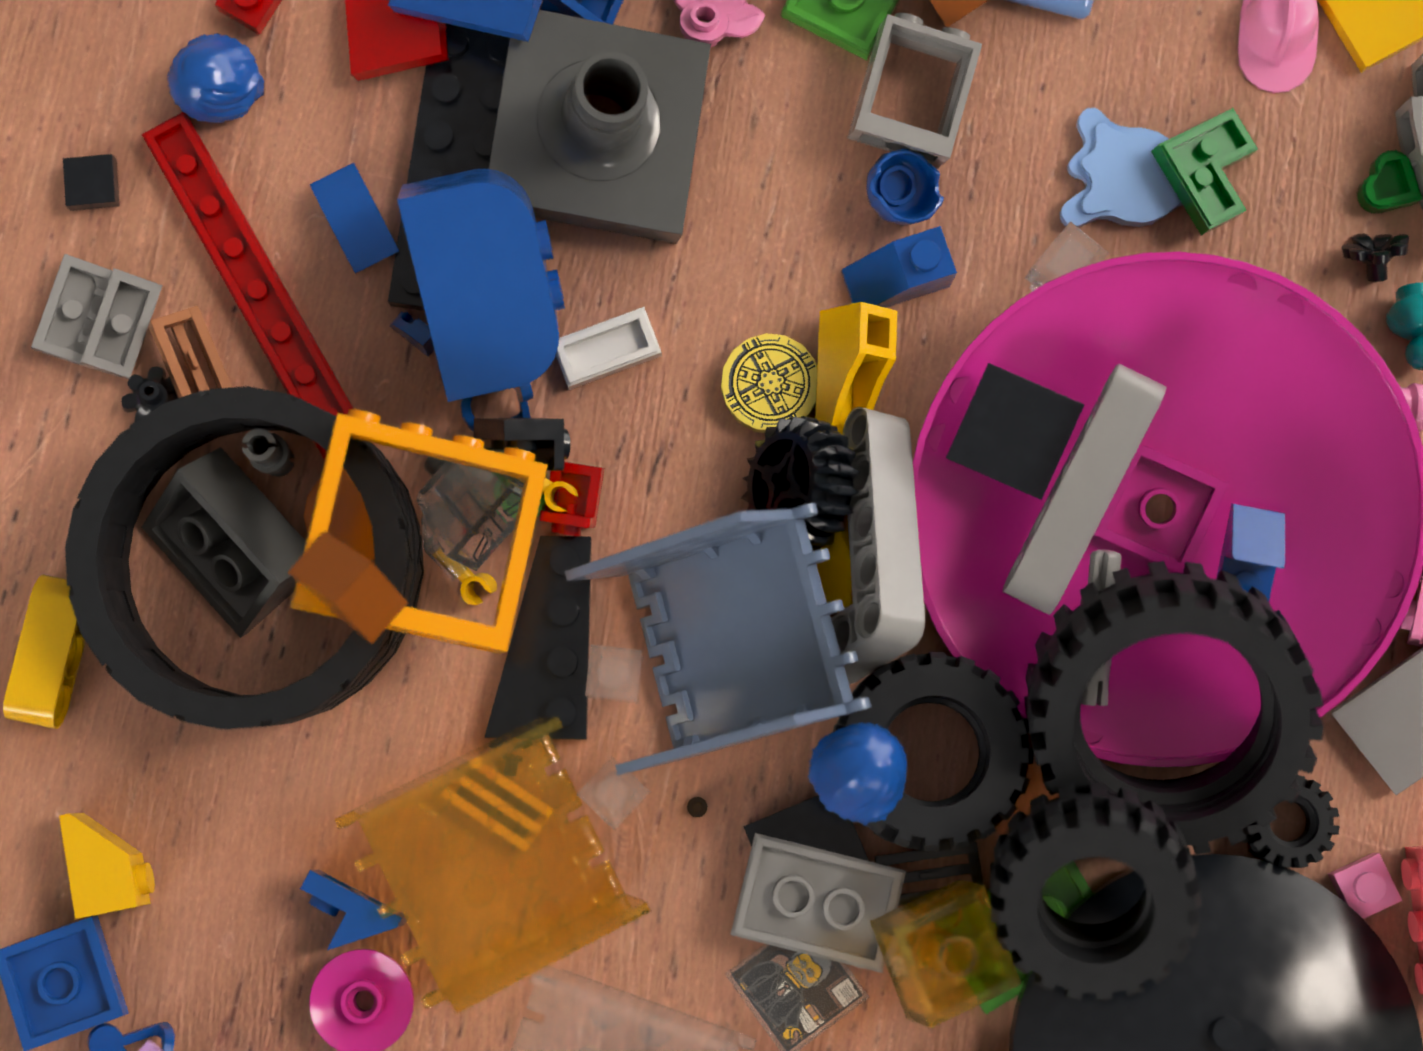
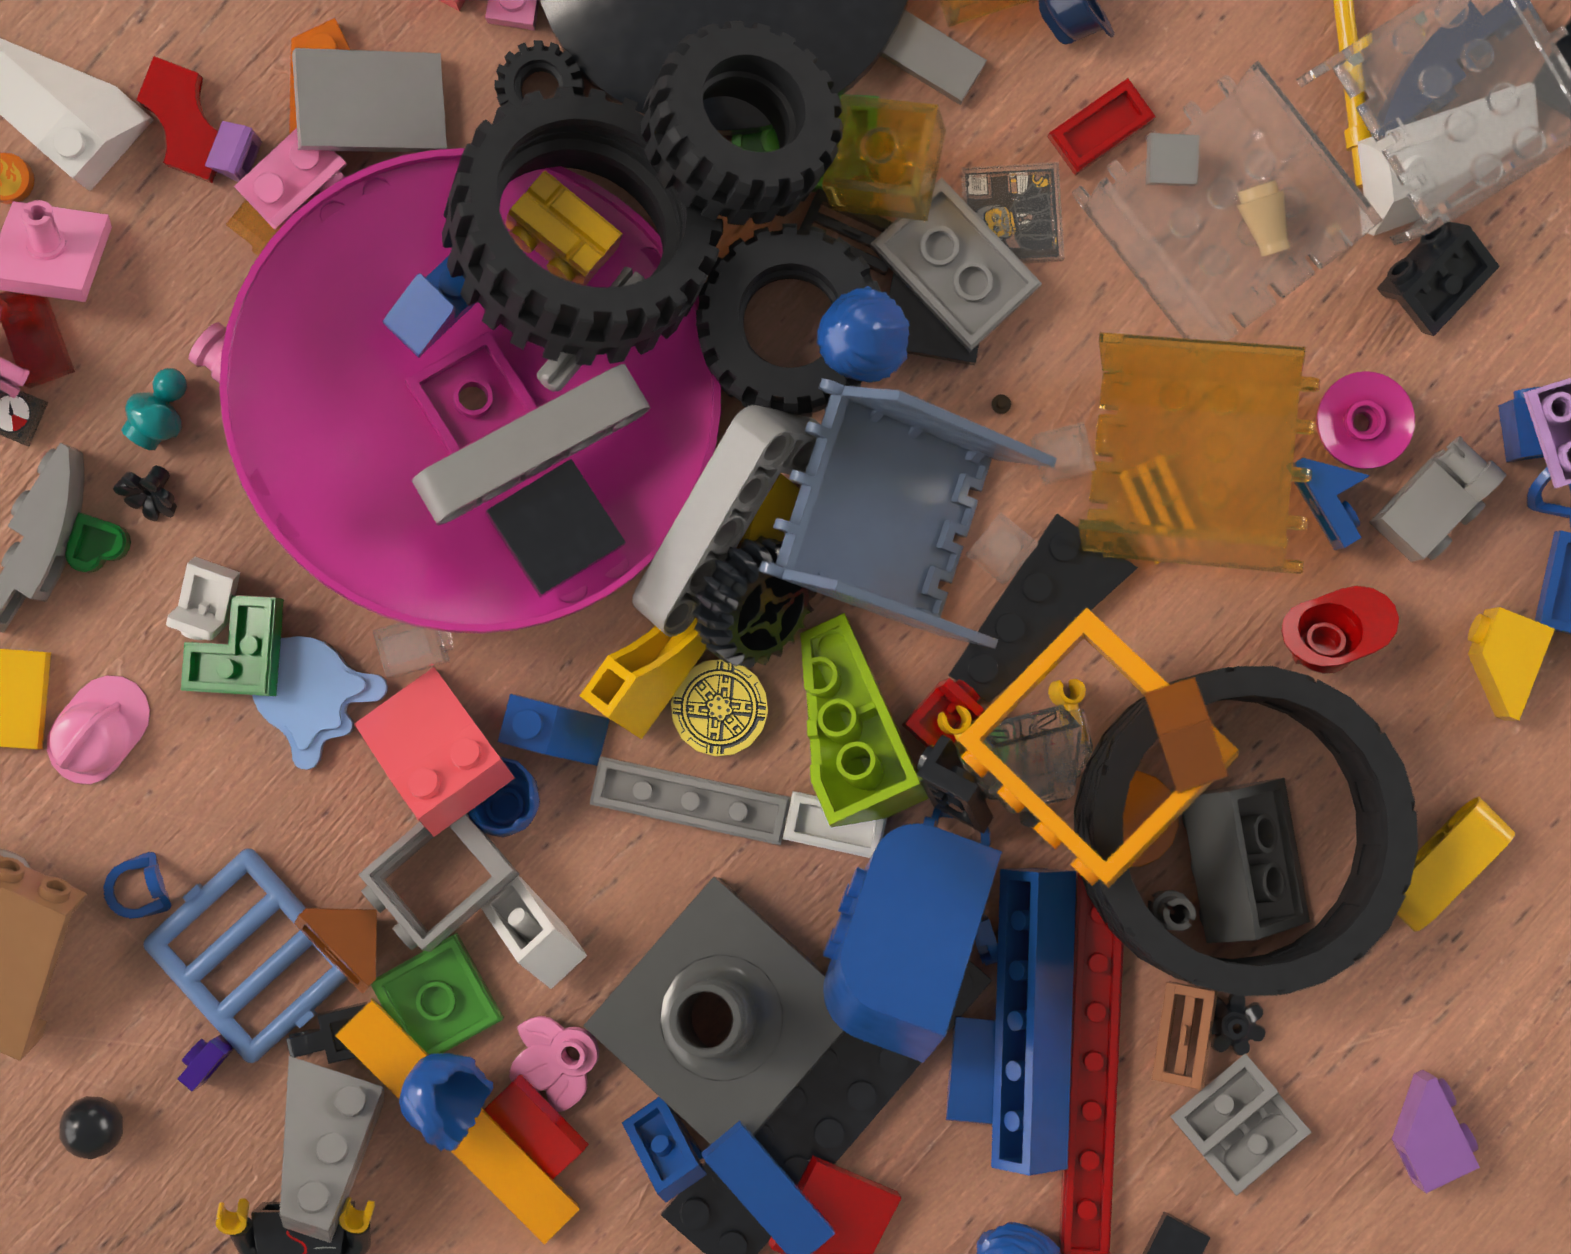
camera: 145 degrees left, 5 degrees up
(251, 971) = (1436, 500): none -> light grey hinge
(270, 796) = (1339, 628): none -> red piece
(330, 286) = (1033, 1020): none -> blue brick
(636, 428) = (855, 745): none -> lime wedge
(743, 290) = (690, 800): none -> light grey tile
(802, 94) = (533, 933): none -> white slope
(988, 184) = (433, 752): none -> coral slope
(1184, 699) = (562, 230): none -> yellow brick
(1266, 191) = (204, 600): none -> white bracket

